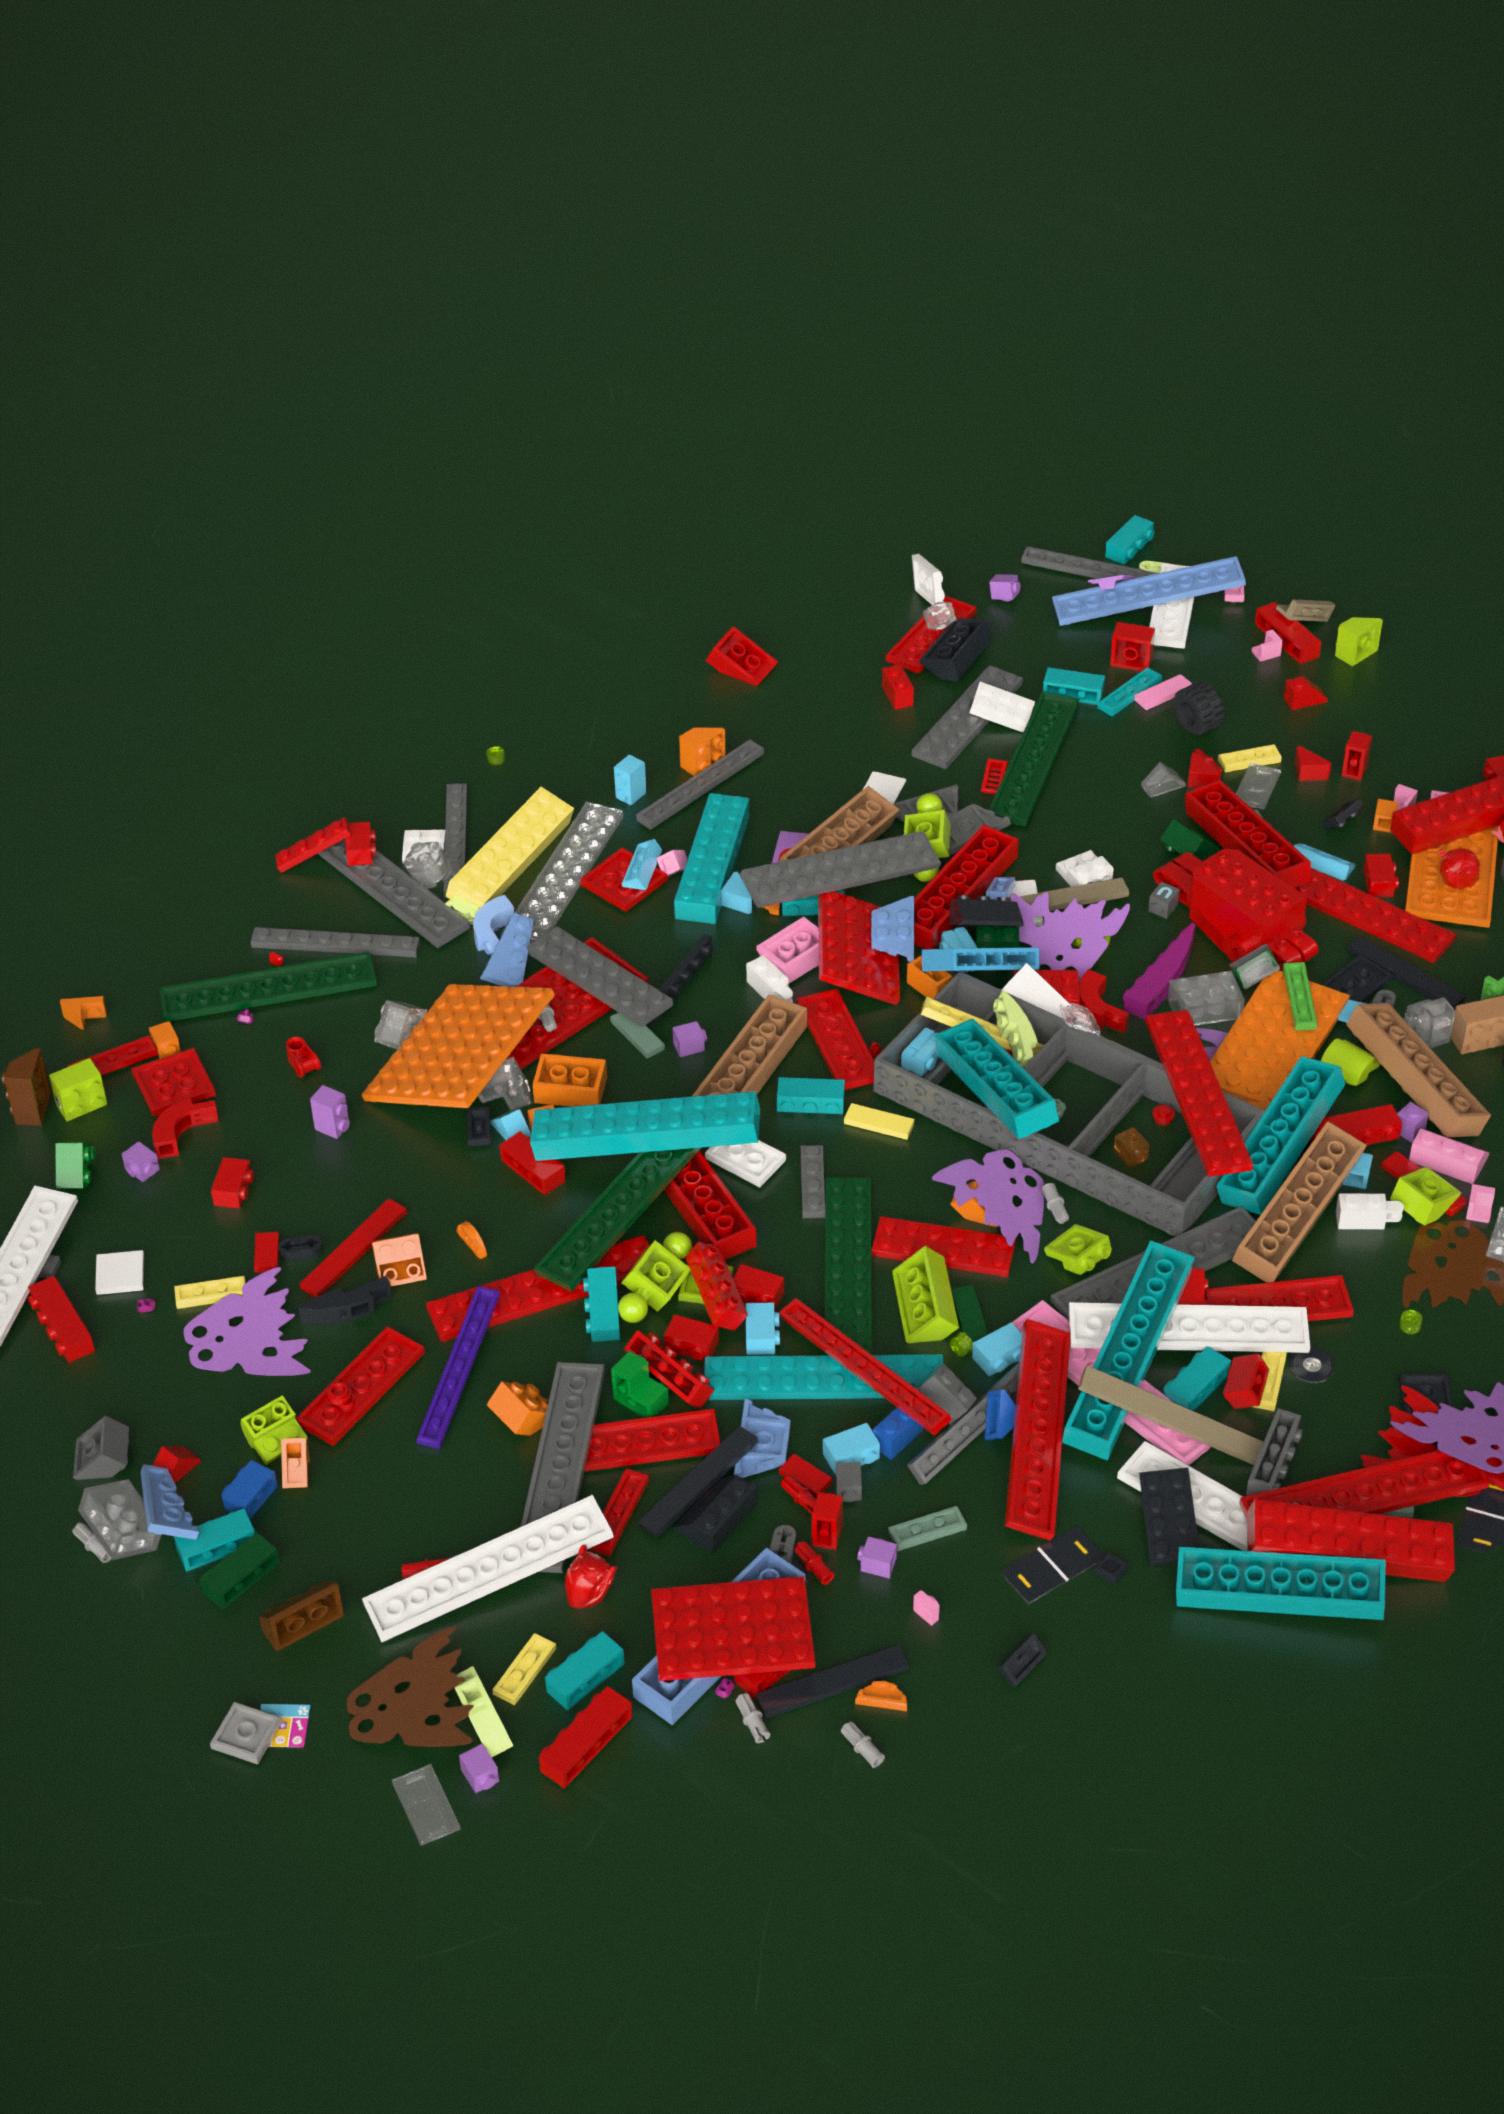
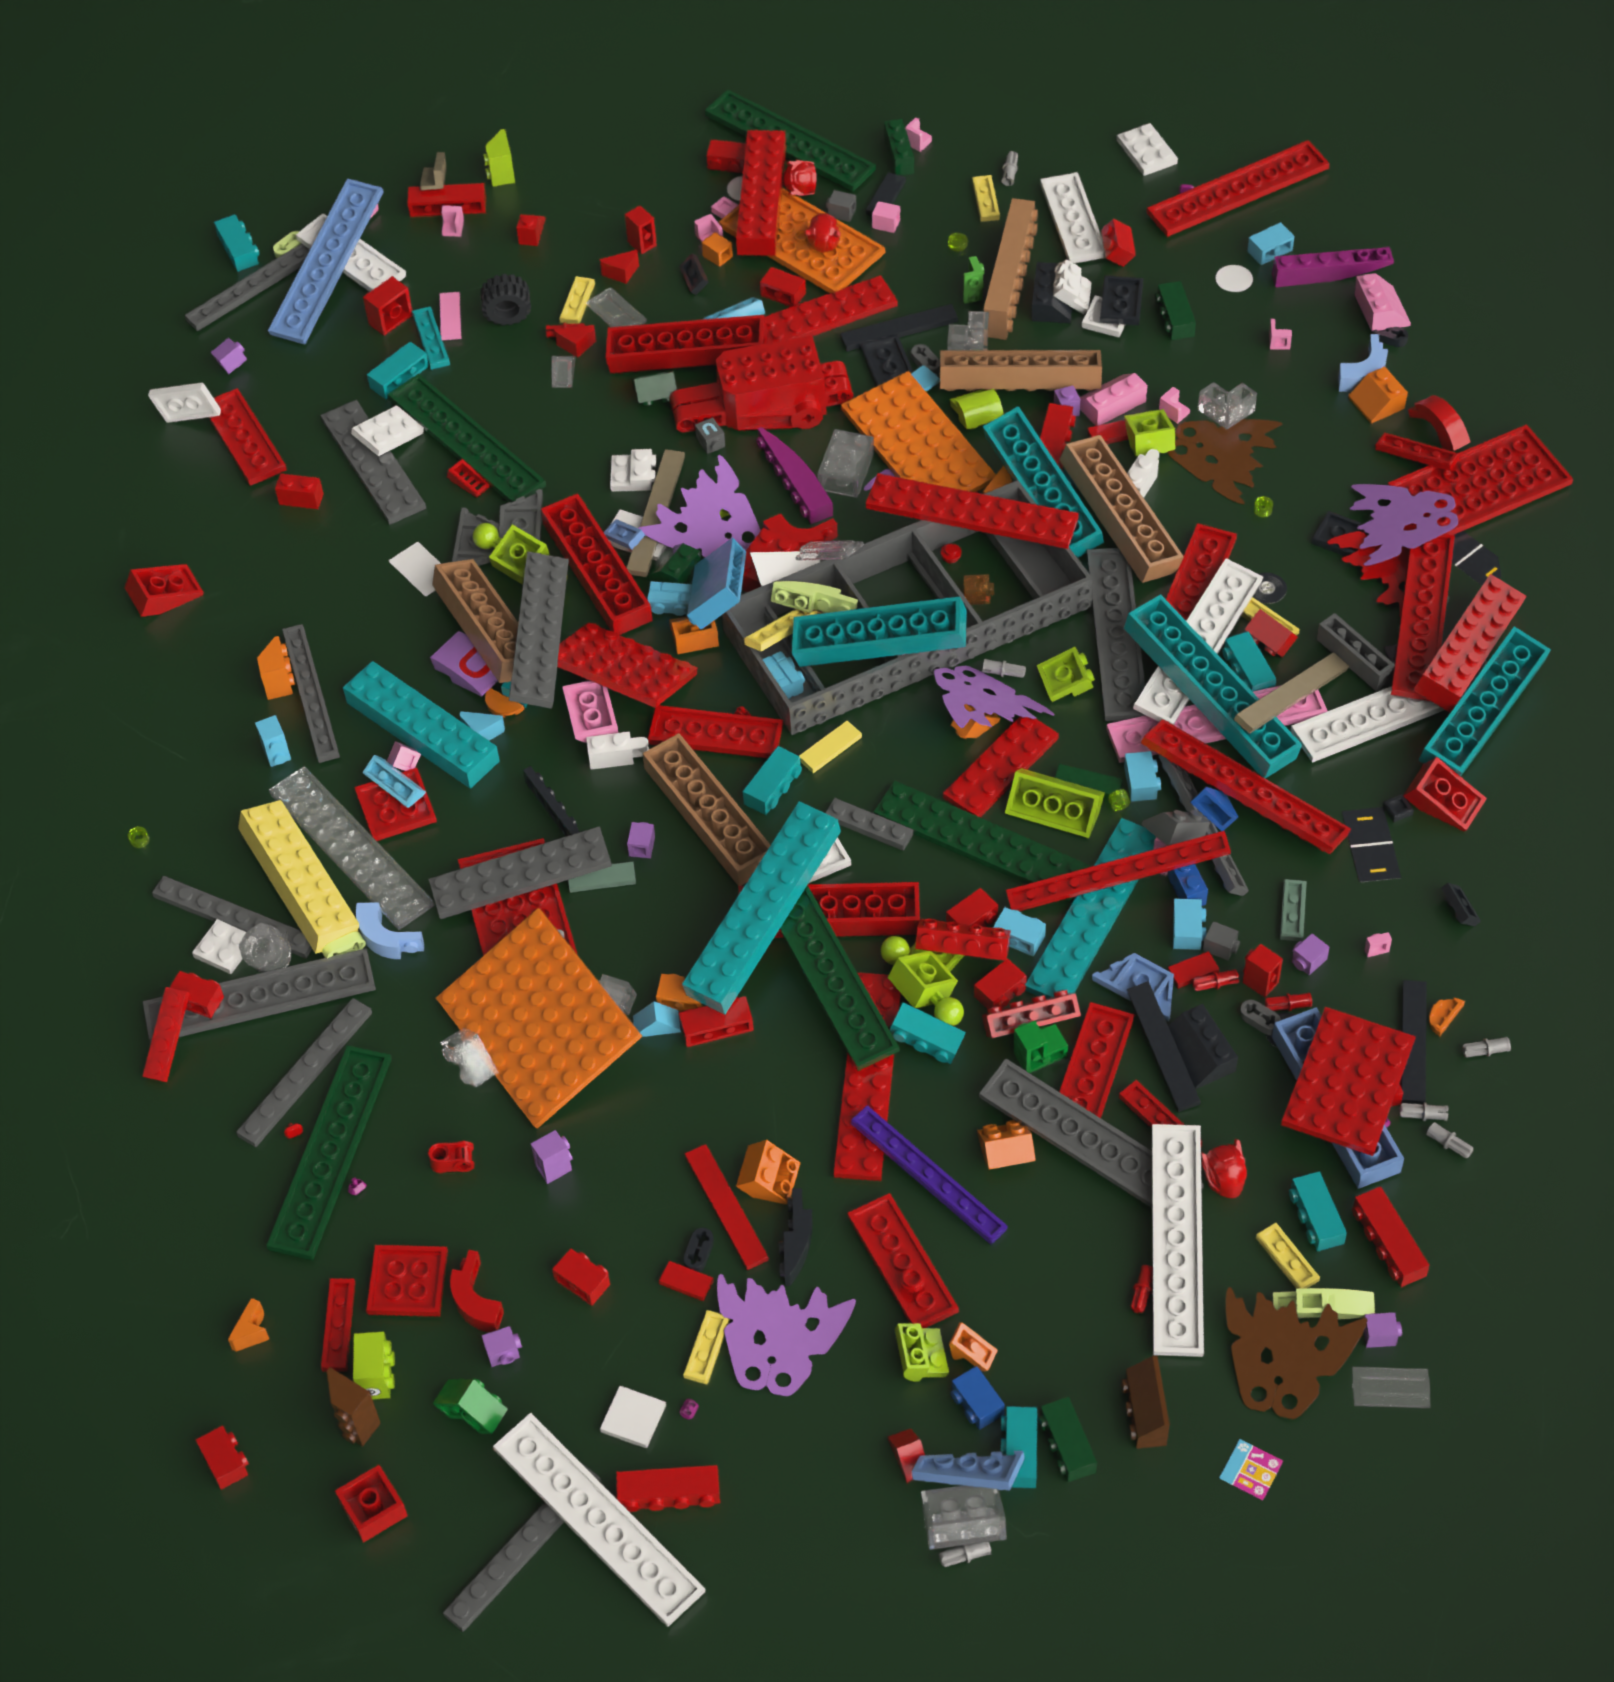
camera: 60 degrees left, 10 degrees up
(101, 1450) = (858, 1508): dark grey slope -> none
(164, 1039) = (345, 1265): orange brick -> none
(246, 1733) = (1251, 1499): light grey plate -> none
(472, 1239) = (775, 1105): orange tile -> none
(478, 1126) = (647, 1049): black plate -> none
(510, 955) = (448, 937): medium blue wing -> none
(569, 1080) = (638, 949): orange brick -> none
(731, 1751) = (1449, 1140): none -> light grey axle
(894, 928) = (628, 628): medium blue wing -> none
(939, 615) = (238, 416): clear brick -> none
(957, 648) = (284, 426): black slope -> none
(985, 912) = (658, 556): black slope -> none
(1109, 582) = (290, 279): piece -> none
(1150, 1598) = (1444, 794): none -> red slope
(1168, 1514) = (1376, 745): black plate -> none
(1255, 966) = (832, 411): piece -> none
(1299, 996) = (892, 400): bright green tile -> none

